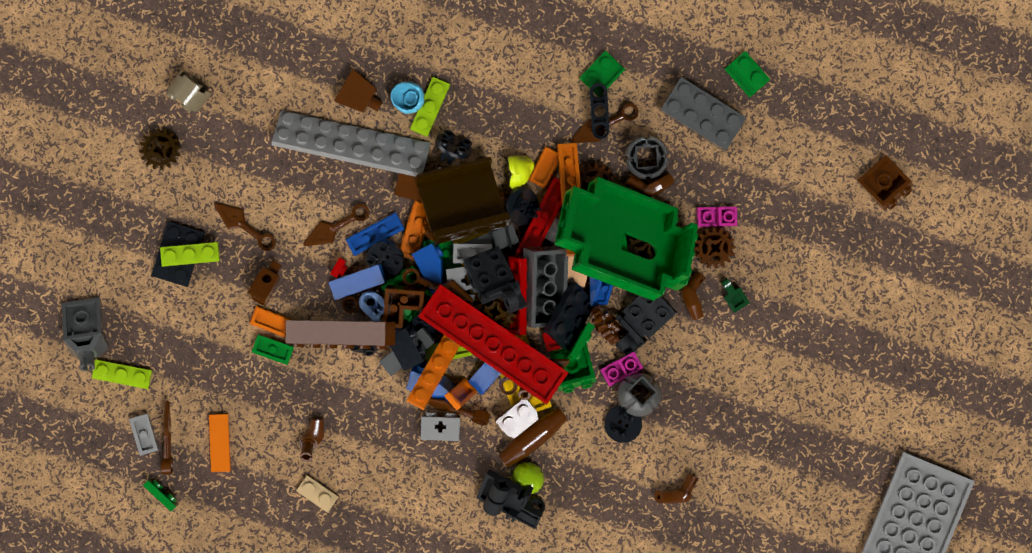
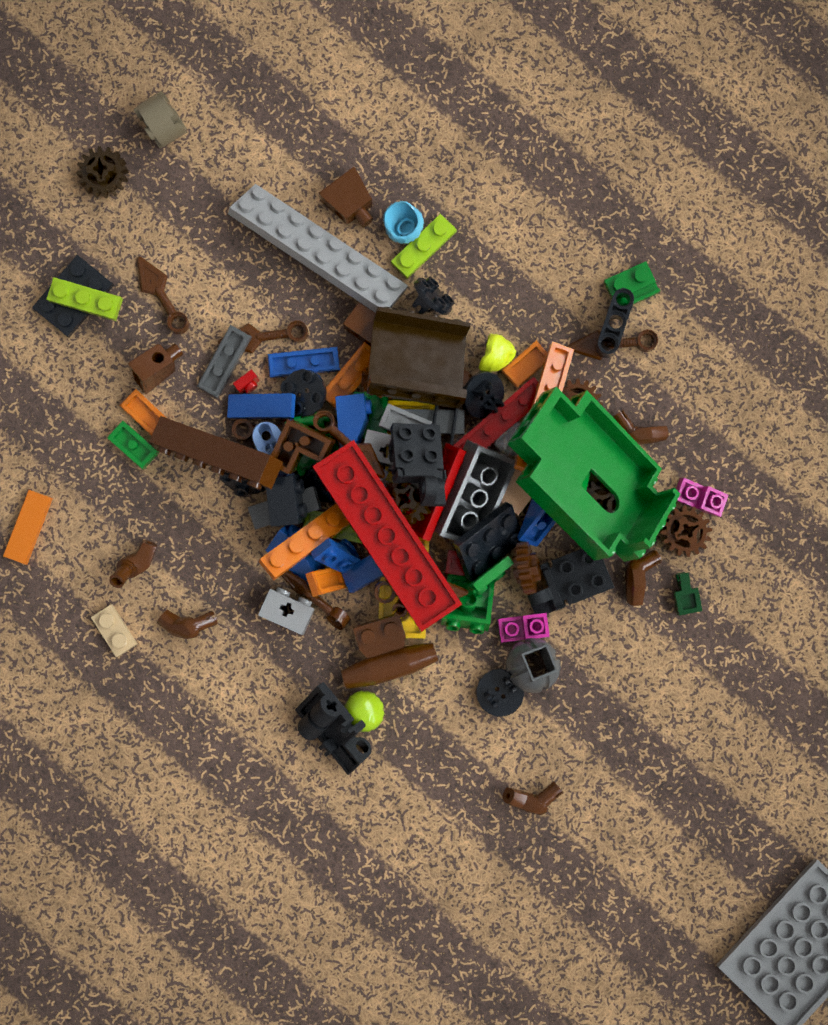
camera: 20 degrees right, 5 degrees down
(314, 258) = (224, 361): none -> dark grey tile
(369, 469) = (186, 626): none -> reddish brown arm
(461, 372) = (338, 556): none -> blue plate
(643, 143) = (654, 381): dark grey piece -> none
(703, 114) = (730, 374): dark grey brick -> none
(747, 74) = (796, 351): green plate -> none

